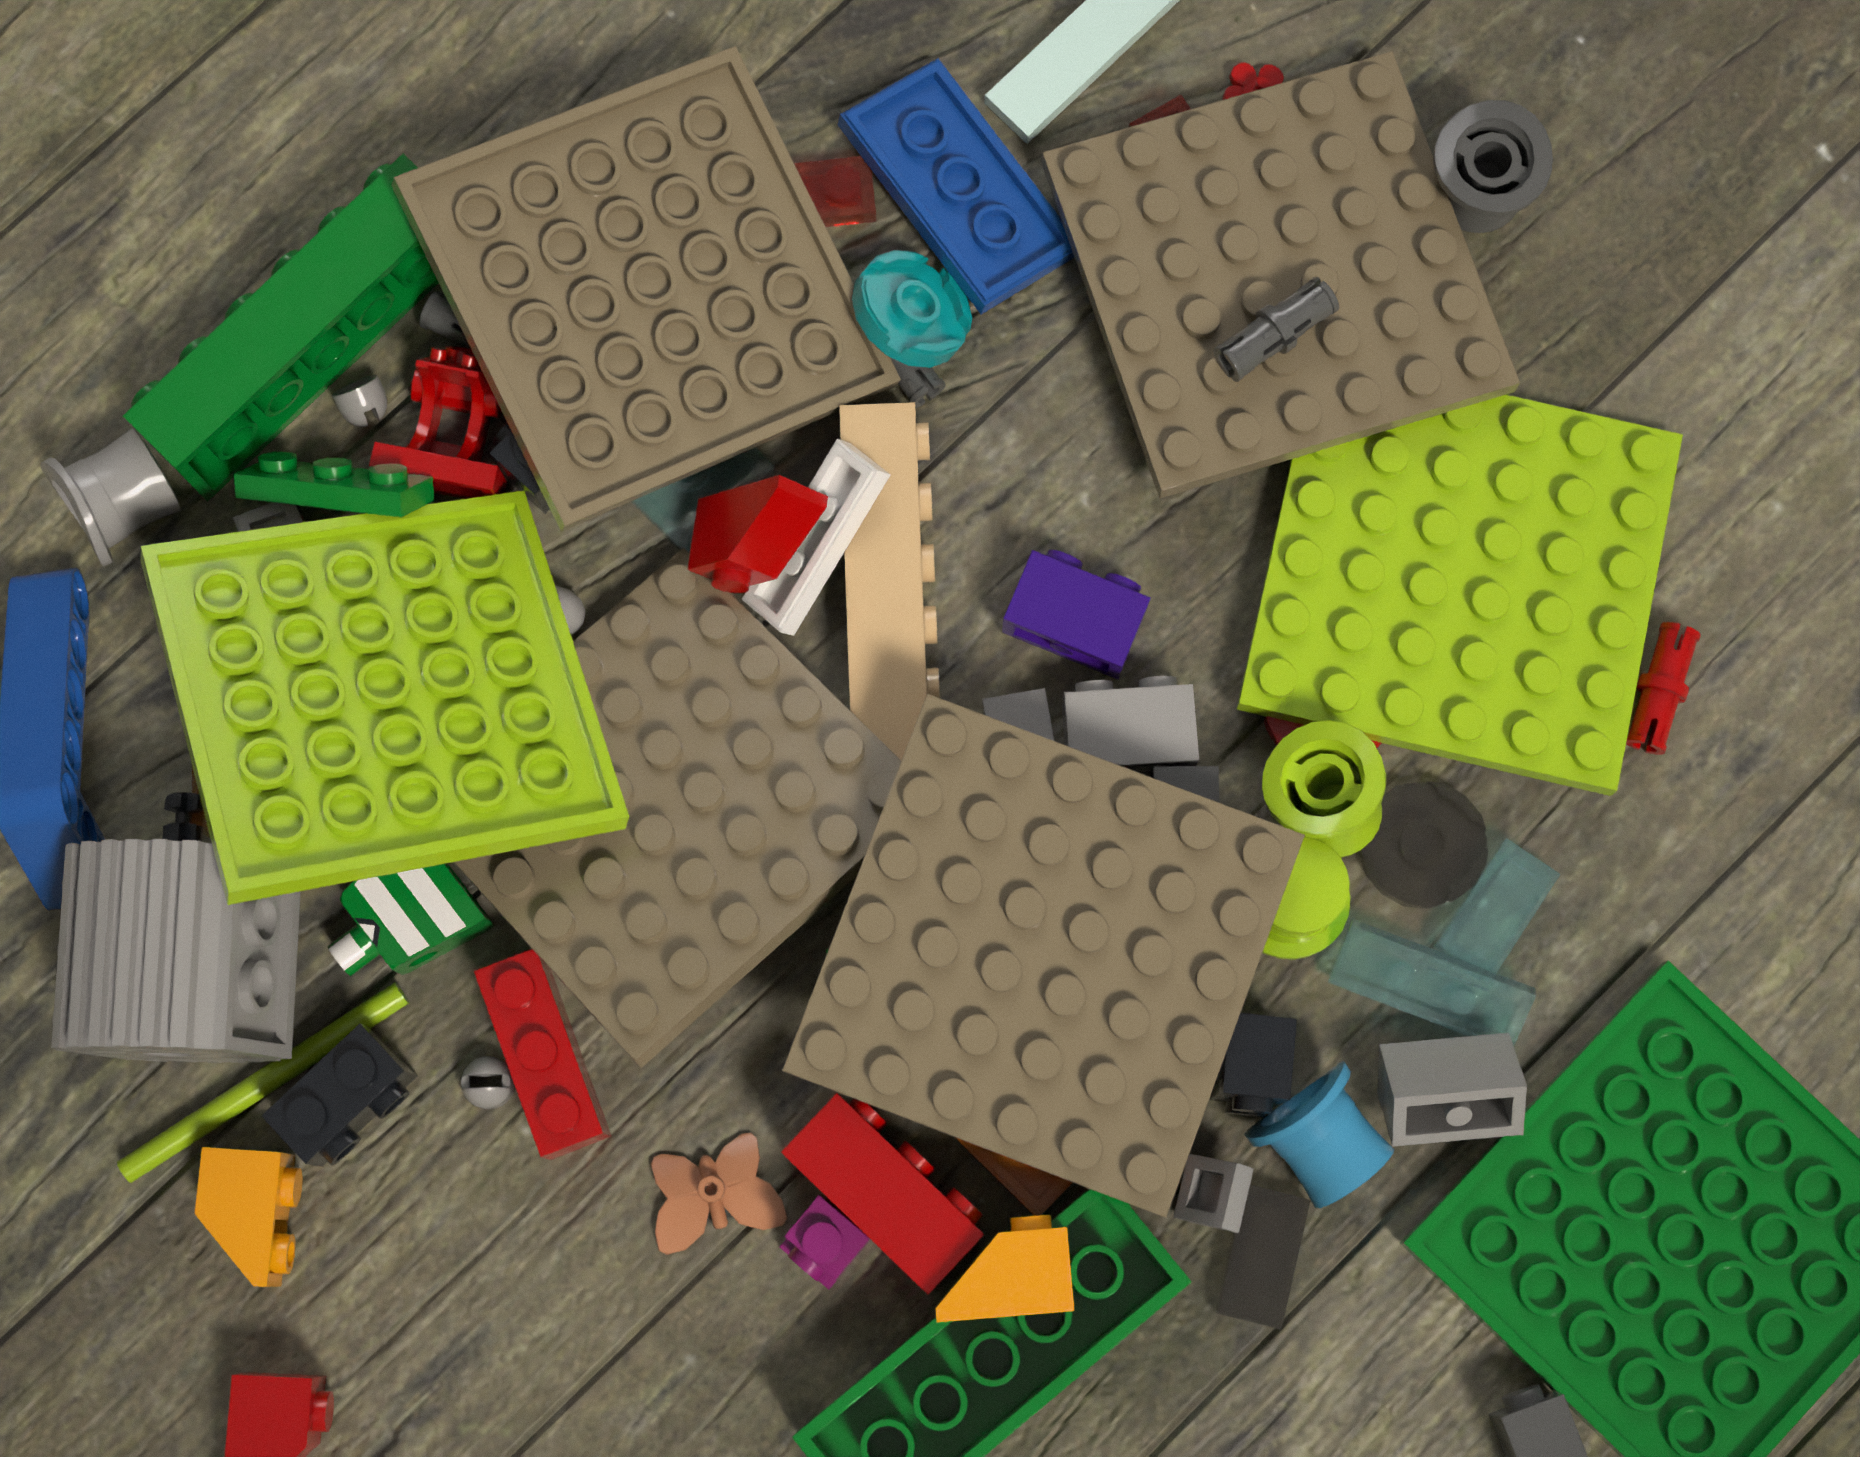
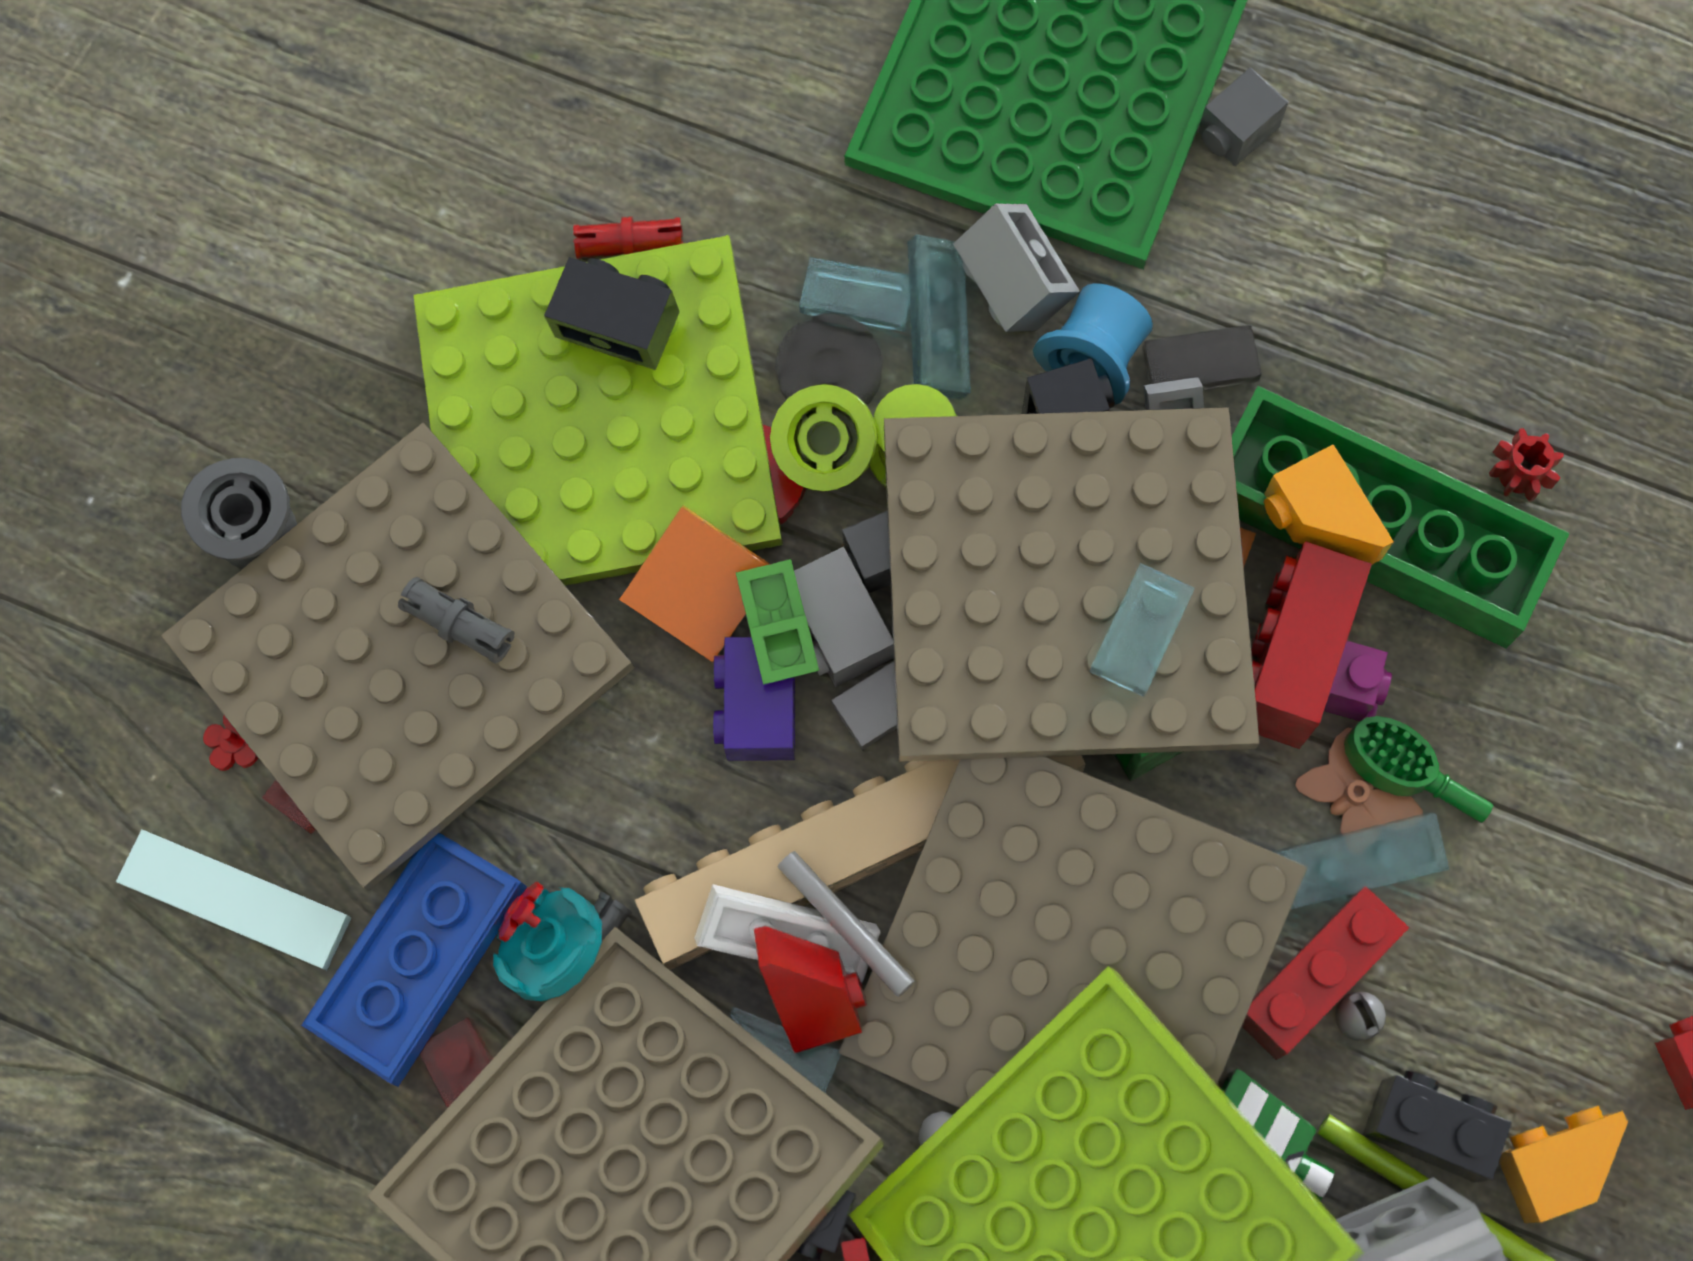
camera: 110 degrees left, 5 degrees down
(641, 1156) = (1368, 858): none -> clear light blue tile
(721, 1254) = (1405, 764): none -> green piece
(797, 593) = (846, 924): none -> light grey bar
(949, 995) = (1142, 629): none -> clear light blue tile
(950, 290) = (520, 912): none -> red plant
(1142, 654) = (777, 621): none -> bright green slope
(1225, 598) = (692, 583): none -> orange tile
(1560, 615) = (612, 311): none -> black brick

